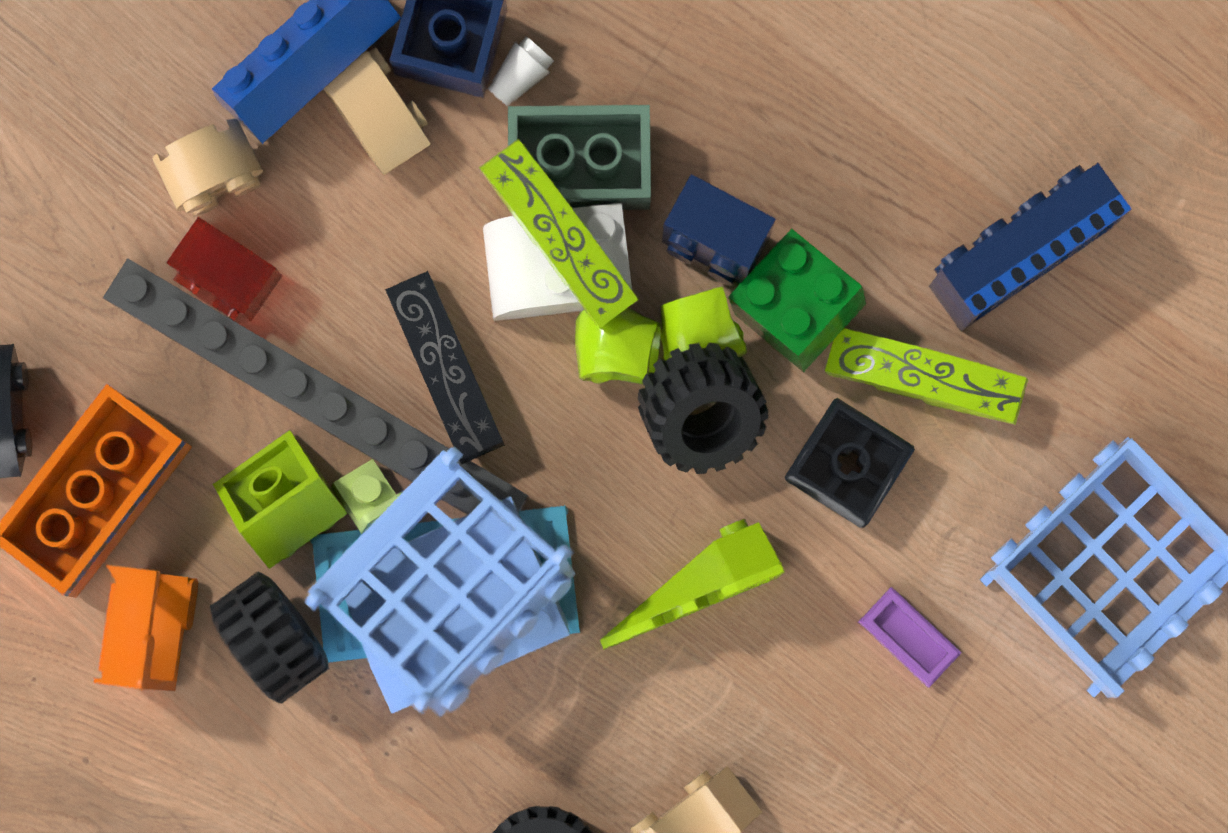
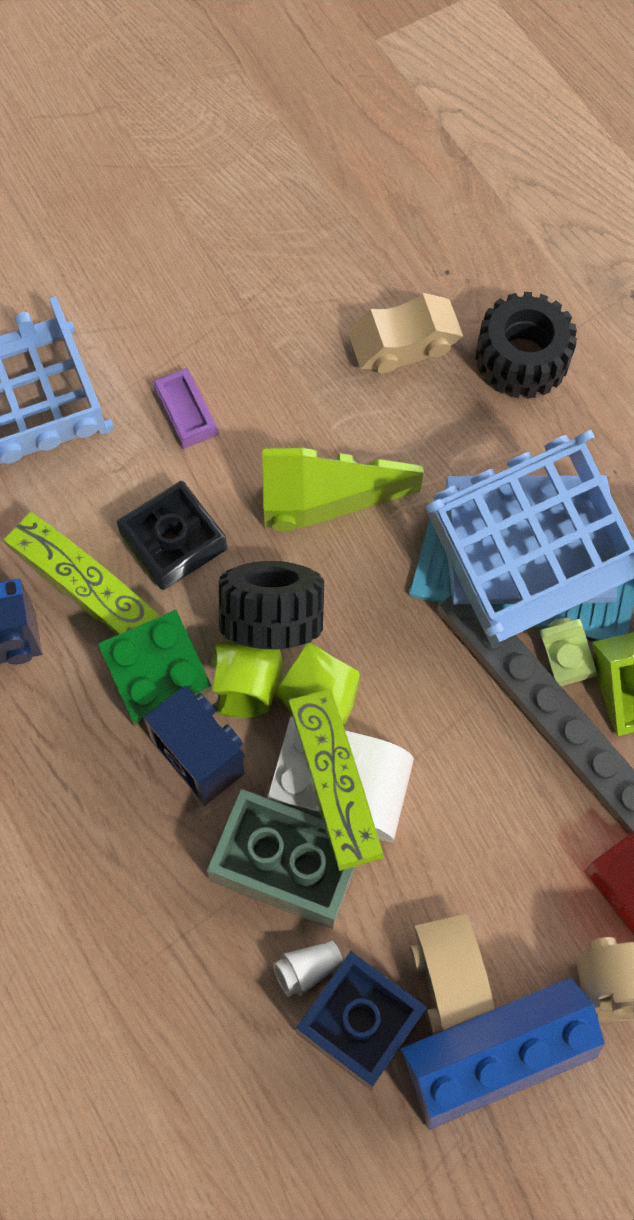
camera: 160 degrees left, 15 degrees down
(444, 367) = (470, 732): black slope -> none

